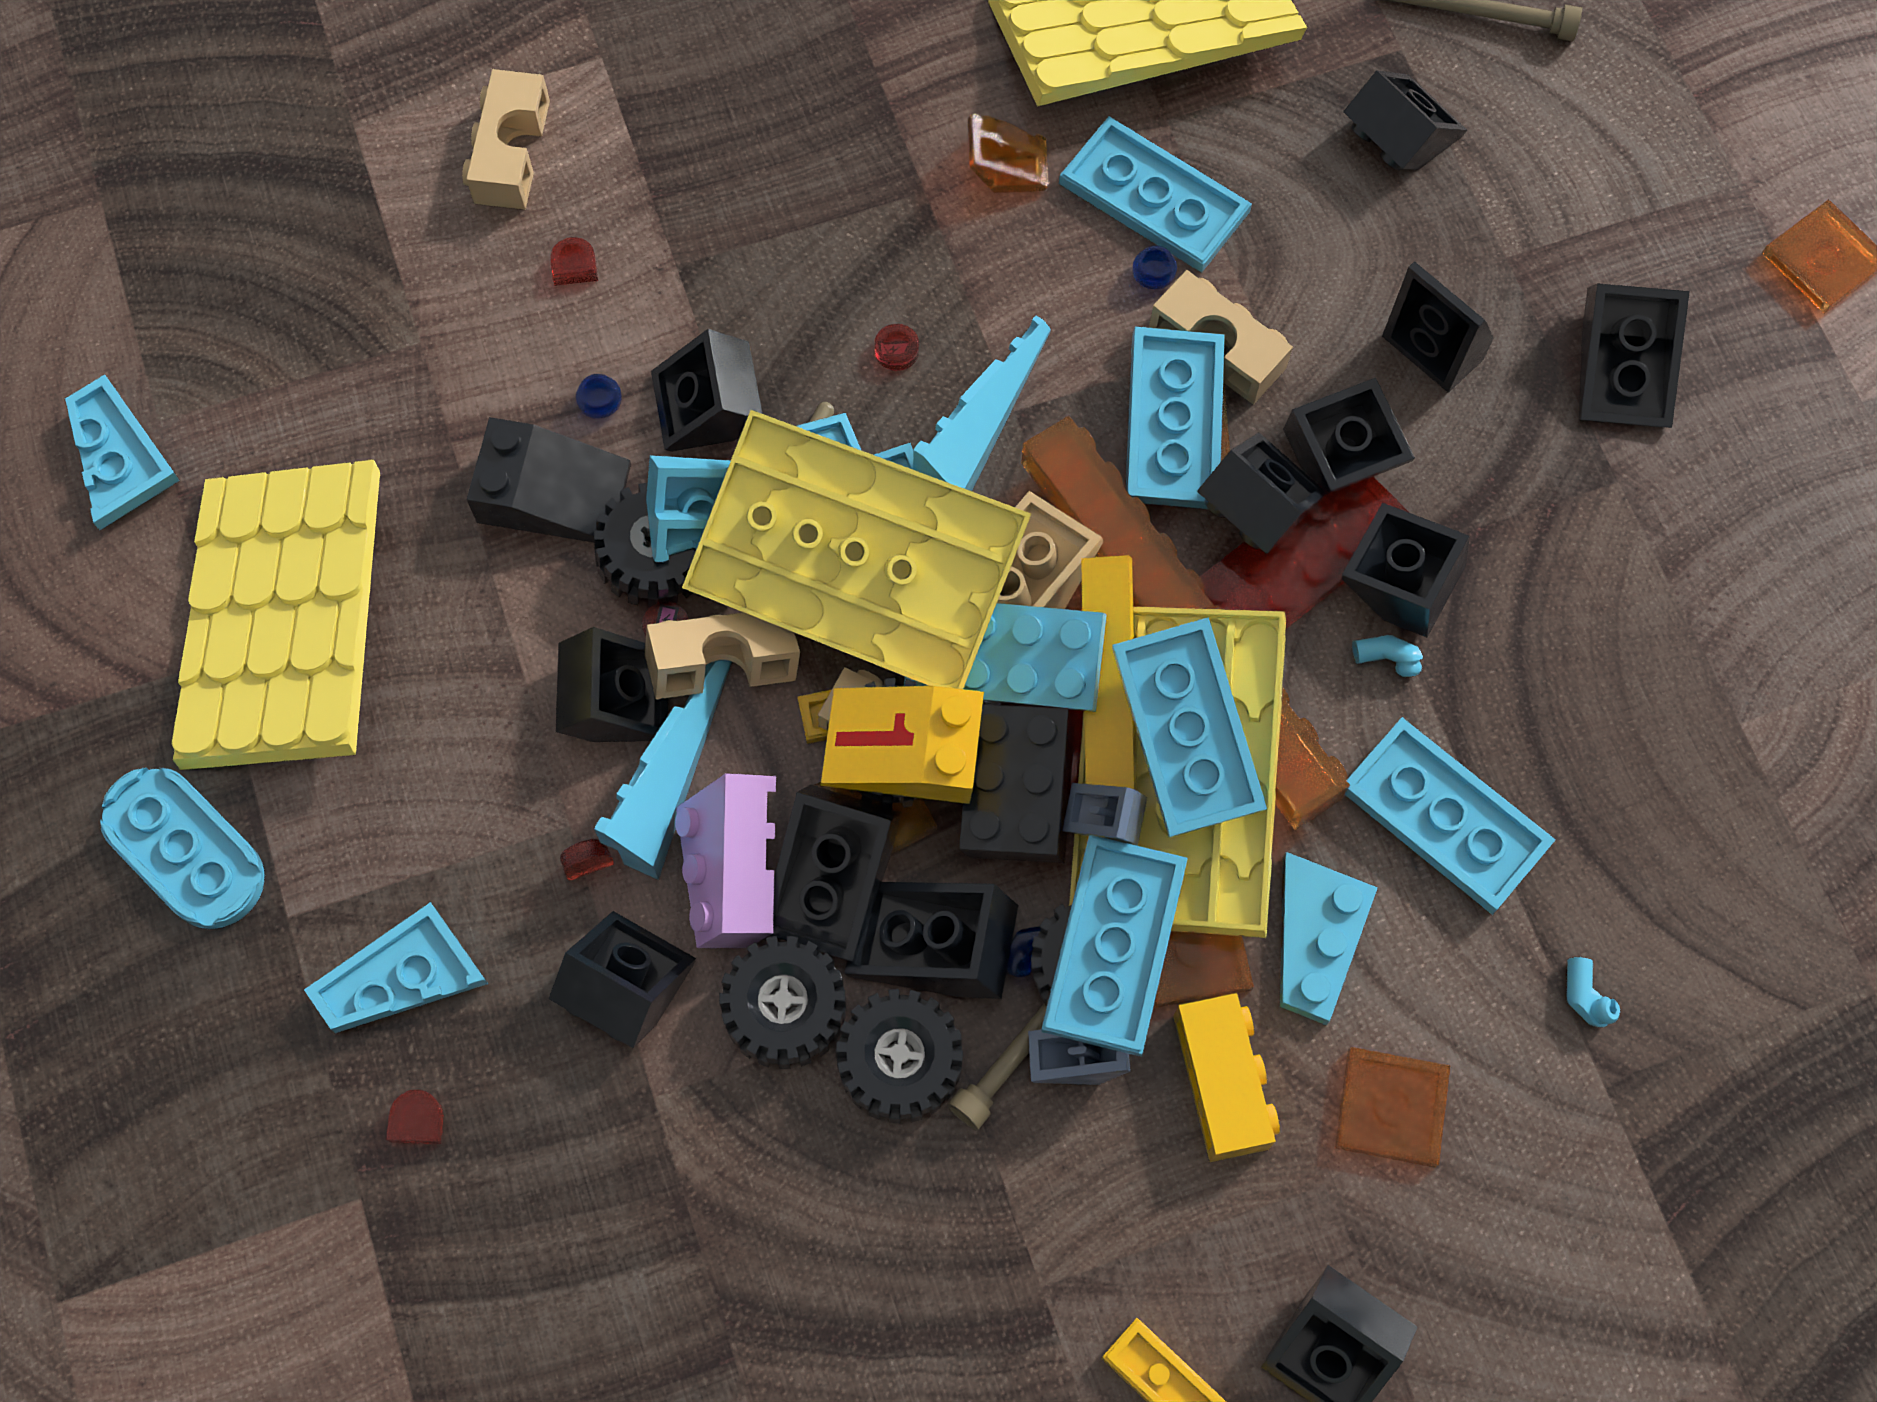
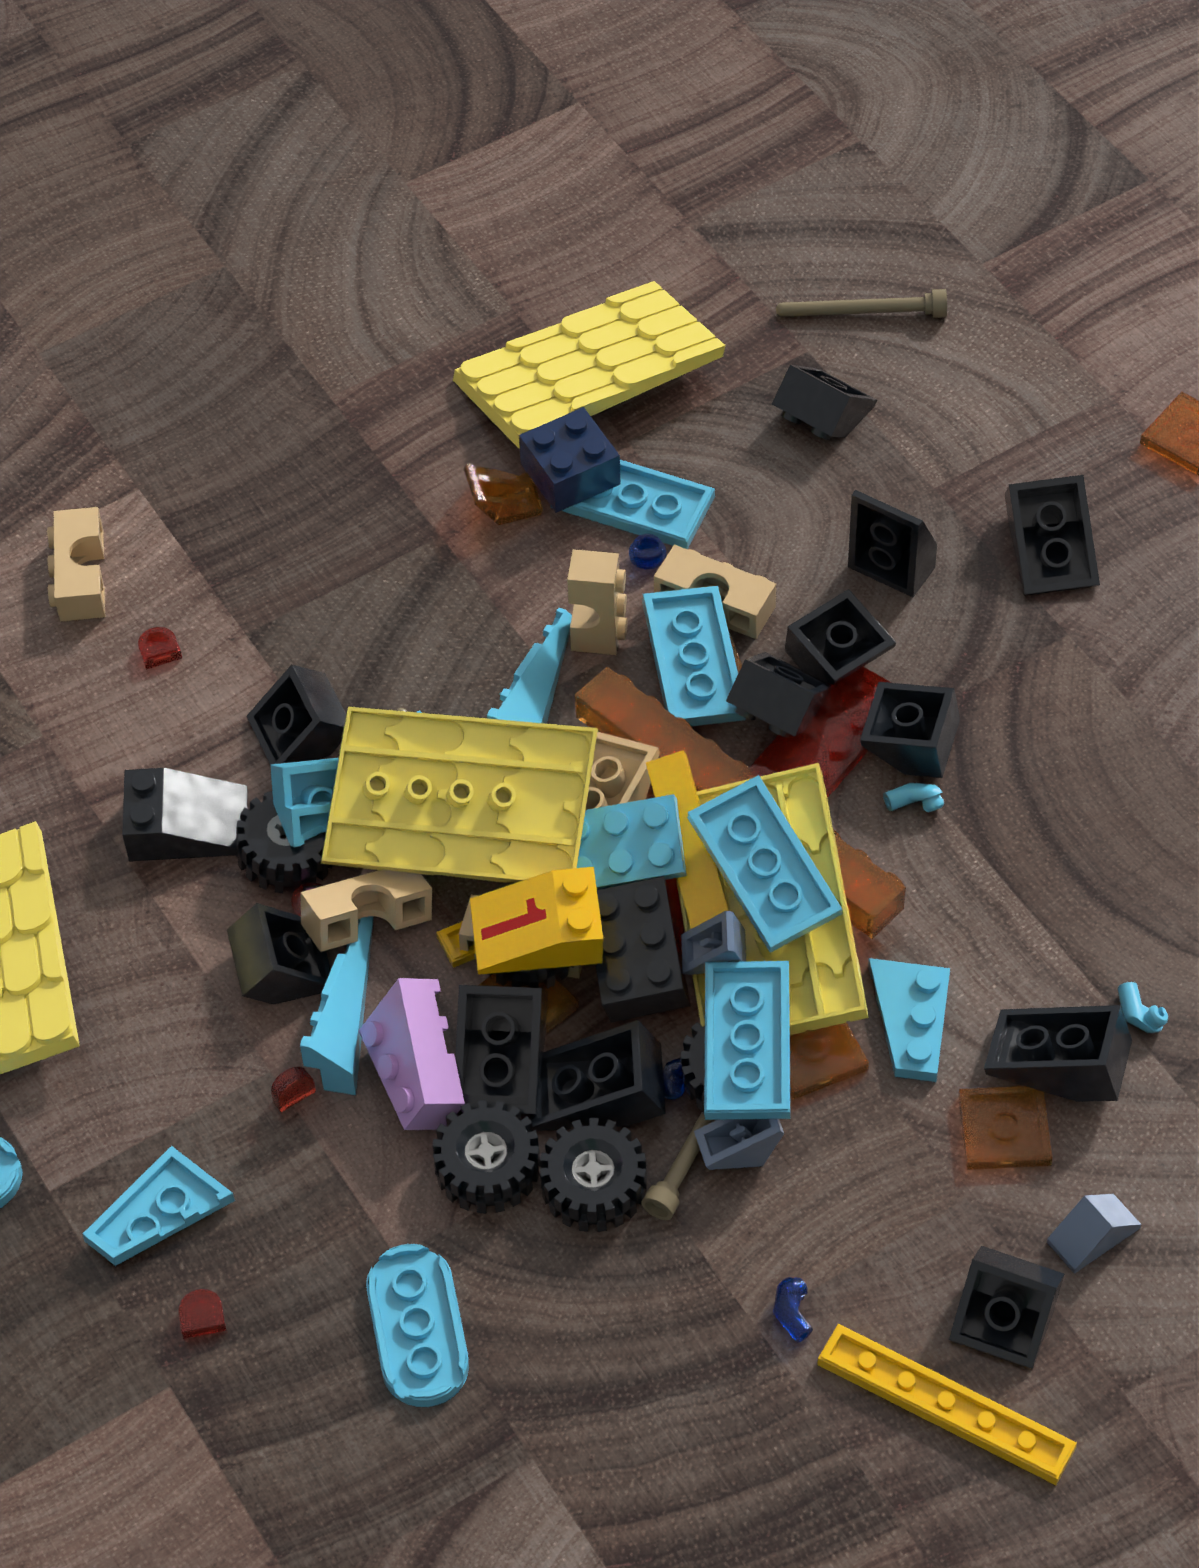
camera: 10 degrees left, 15 degrees down
(598, 396) = (207, 742): clear blue plate -> none
(620, 978) = (345, 1170): black slope -> none
(655, 1194) = (417, 1325): none -> medium azure tile
(896, 347) = (448, 655): clear red tile -> none
(1079, 327) = (599, 606): none -> tan arch
(1083, 1279) = (786, 1307): none -> clear blue arm
(1092, 133) = (569, 459): none -> dark blue brick
(1226, 1077) = (863, 1131): yellow brick -> none
(1447, 815) = (992, 903): medium azure plate -> none
(1464, 1270) = (1092, 1230): none -> sand blue slope
(1482, 1032) = (1062, 1050): none -> black slope

